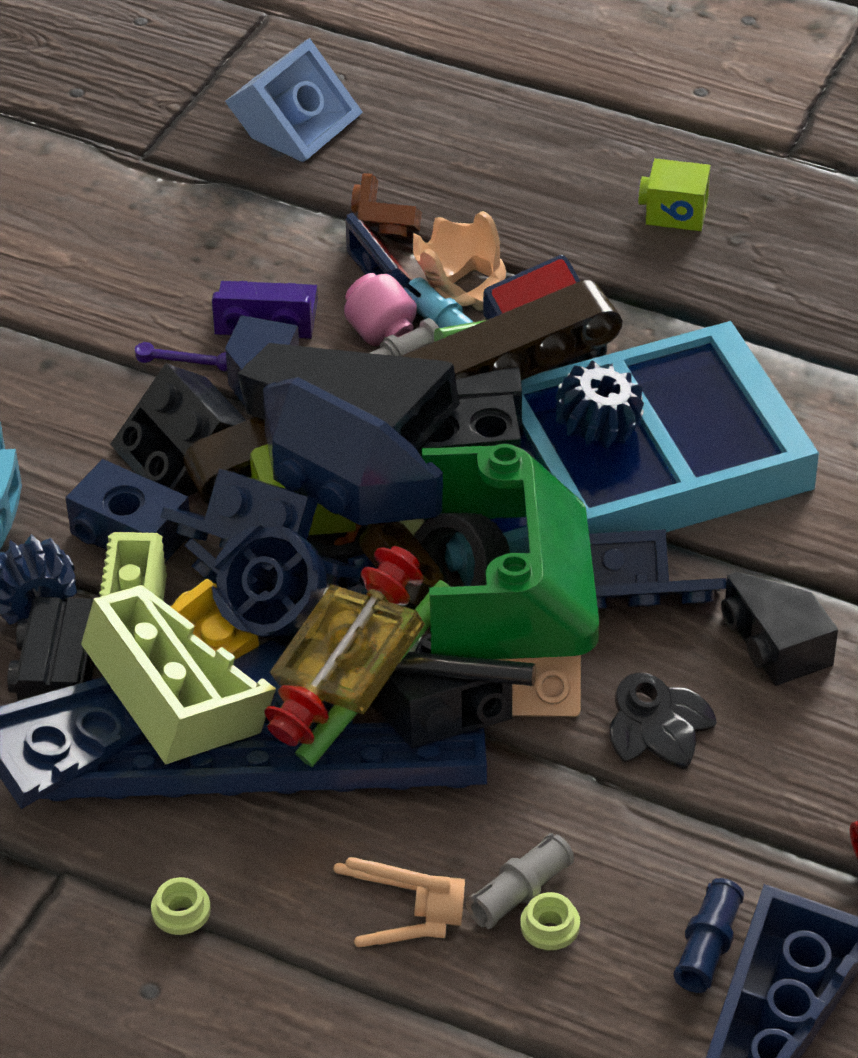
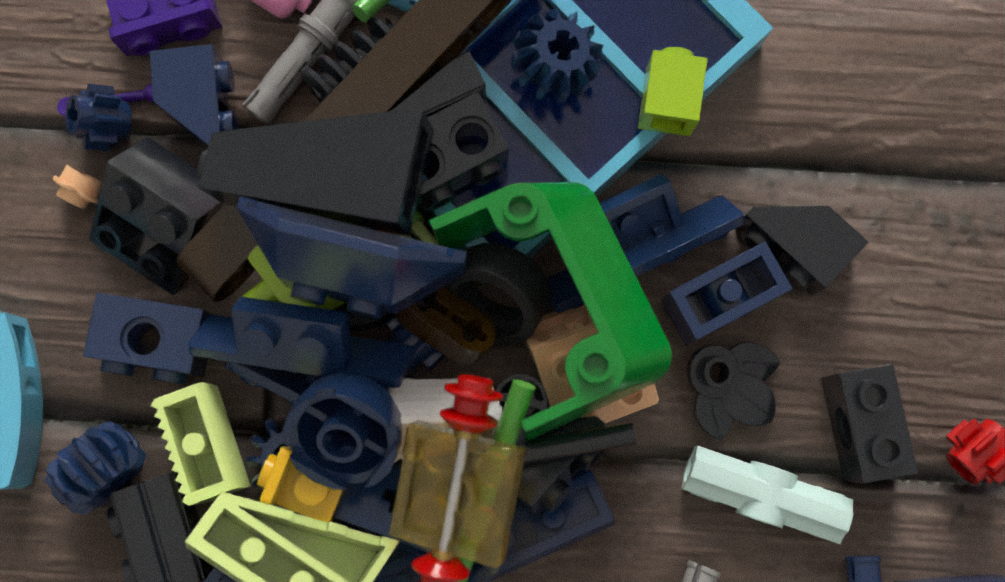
camera: 25 degrees left, 35 degrees up
(121, 398) = (77, 187): none -> light nougat plate
(168, 347) = (98, 117): none -> dark blue gear
(650, 807) = (768, 494): none -> light aqua piece
(680, 632) = (725, 293): none -> dark blue brick
(692, 457) = (672, 91): none -> lime brick
(777, 779) = (869, 425): none -> black brick

